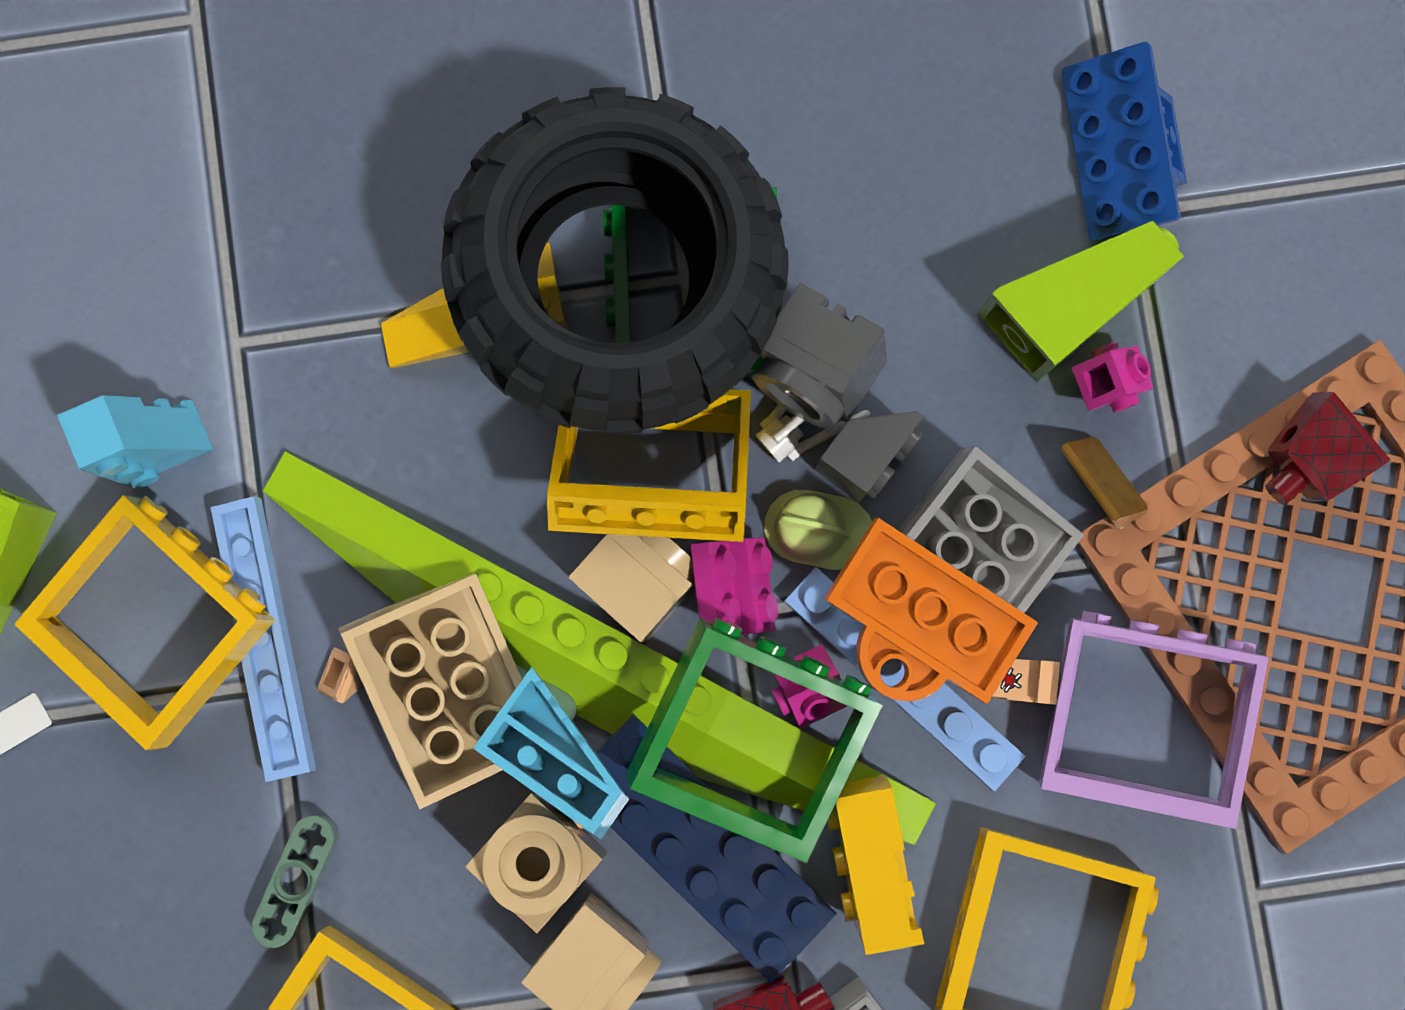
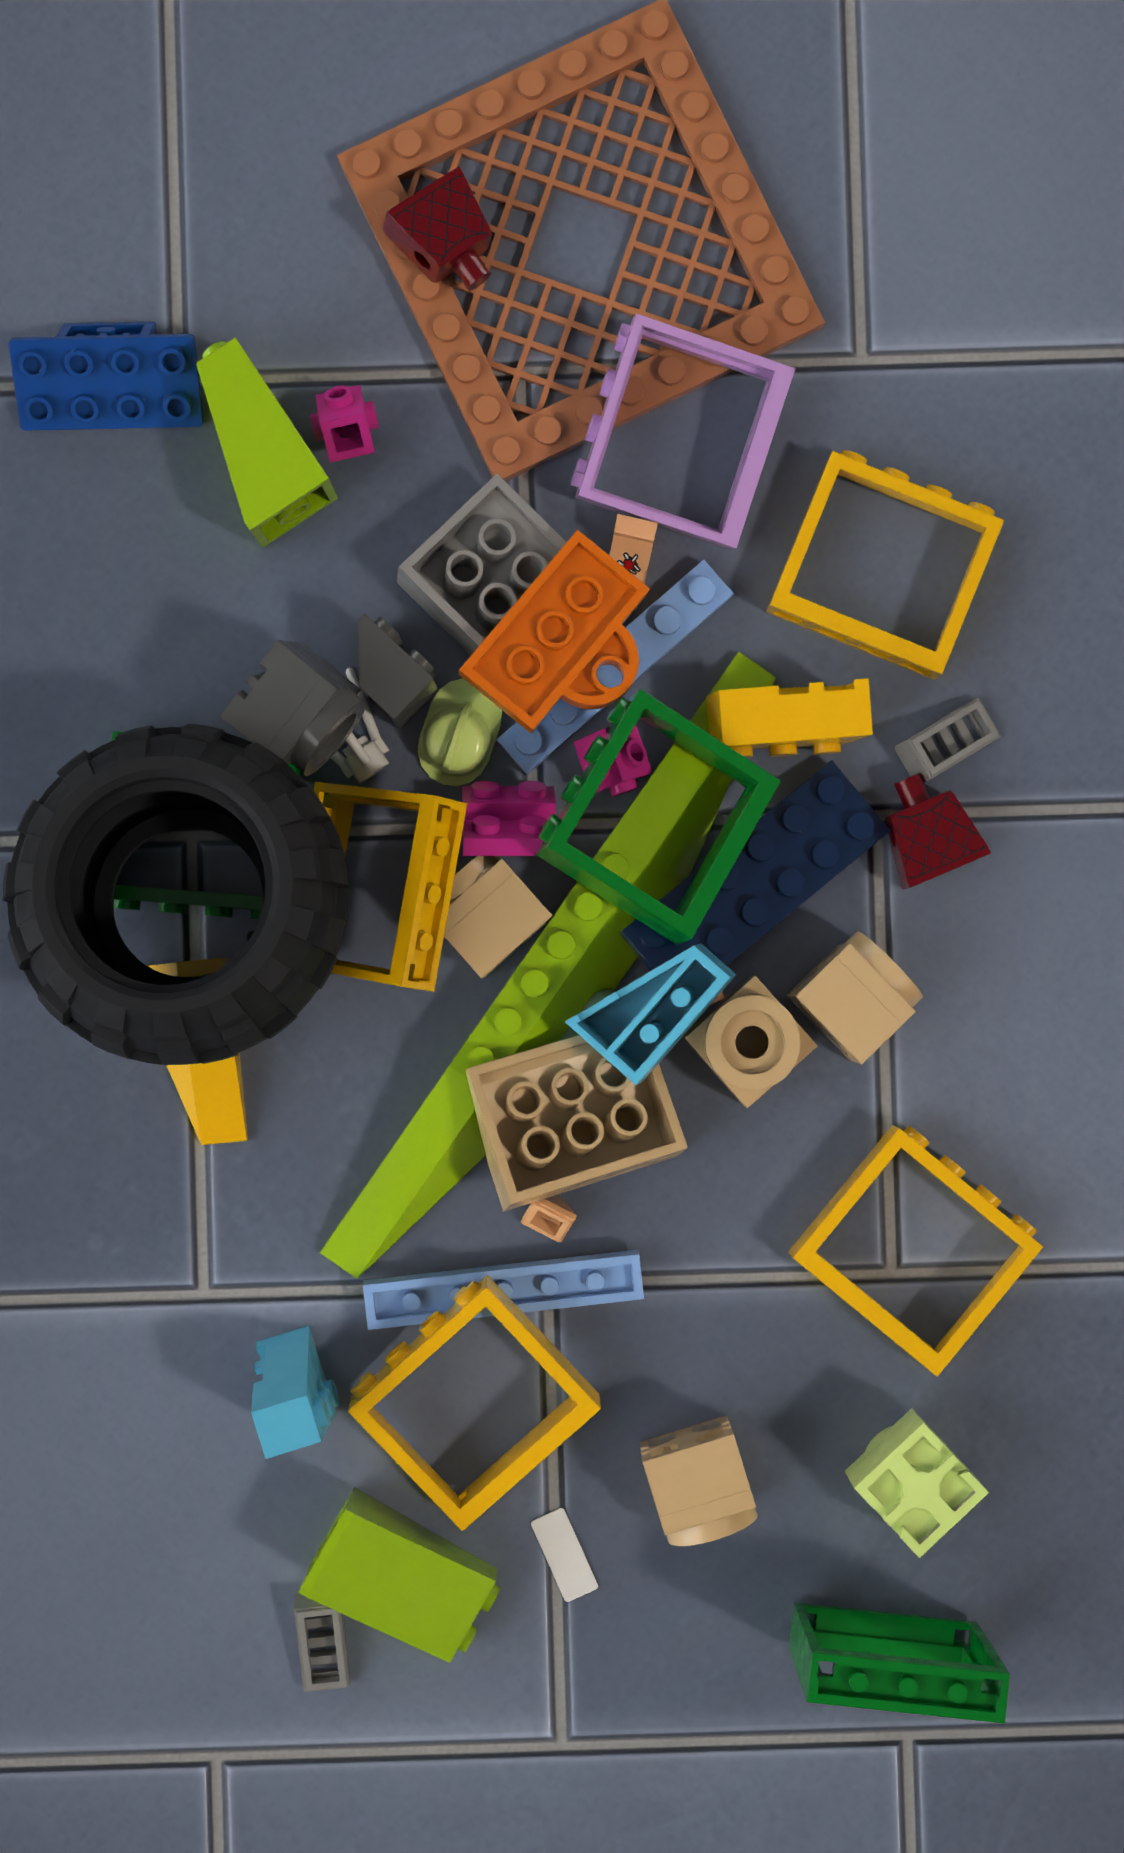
camera: 85 degrees left, 5 degrees up
(80, 859) = (698, 1483): none -> tan piece
(293, 918) = (777, 1286): sand green beam -> none
(1105, 480) = (445, 445): pearl gold slope -> none

